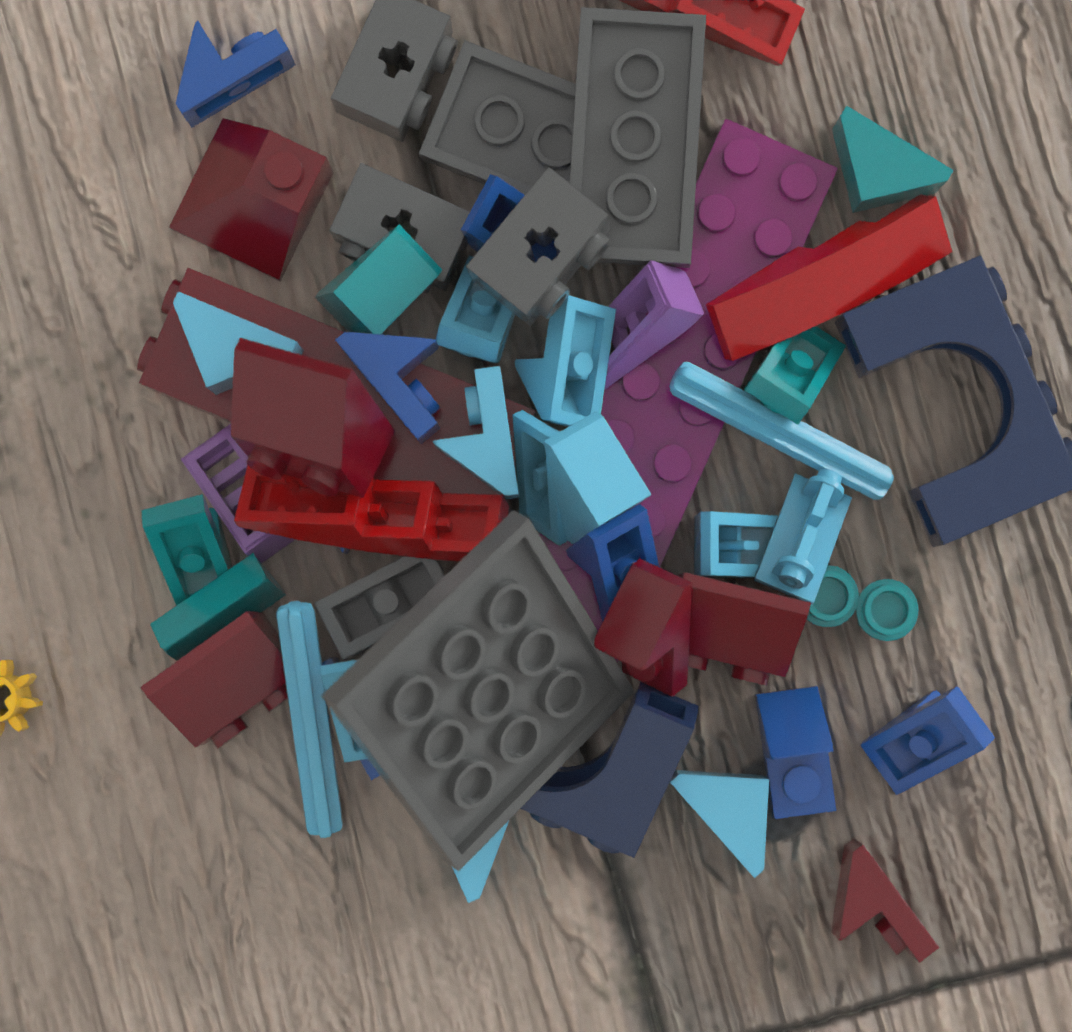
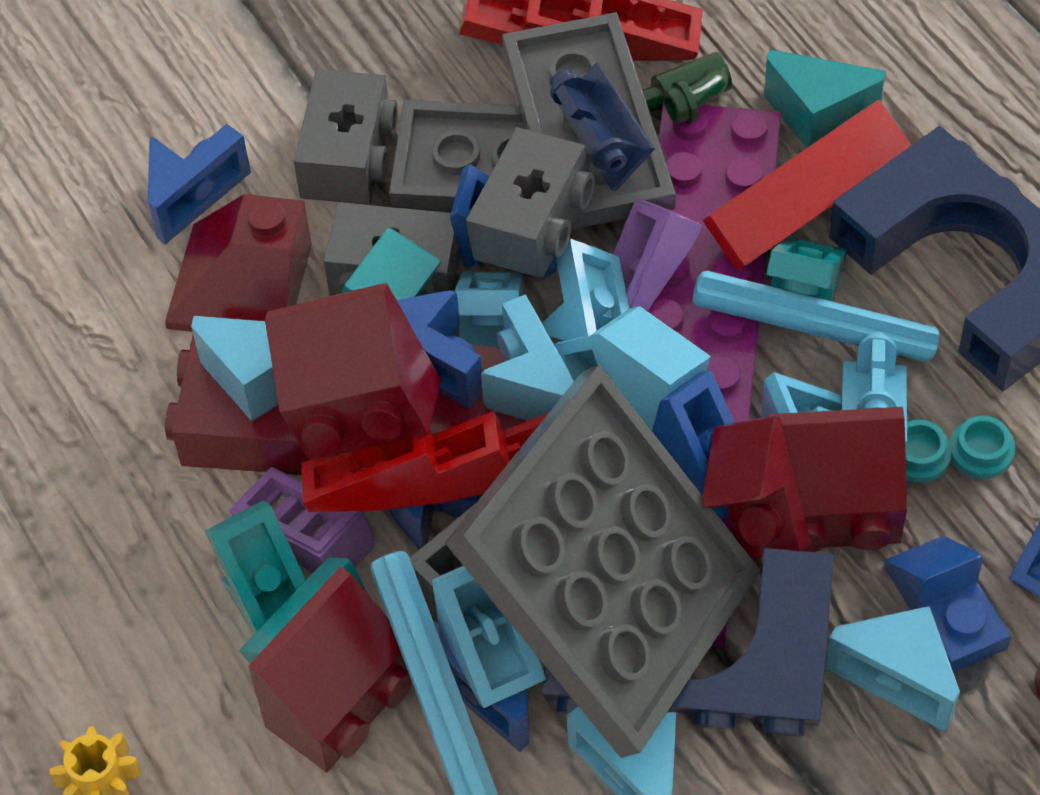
camera: 15 degrees left, 30 degrees down
(644, 184) = (602, 123): none -> dark blue hinge
(765, 103) = (688, 87): none -> dark green plant

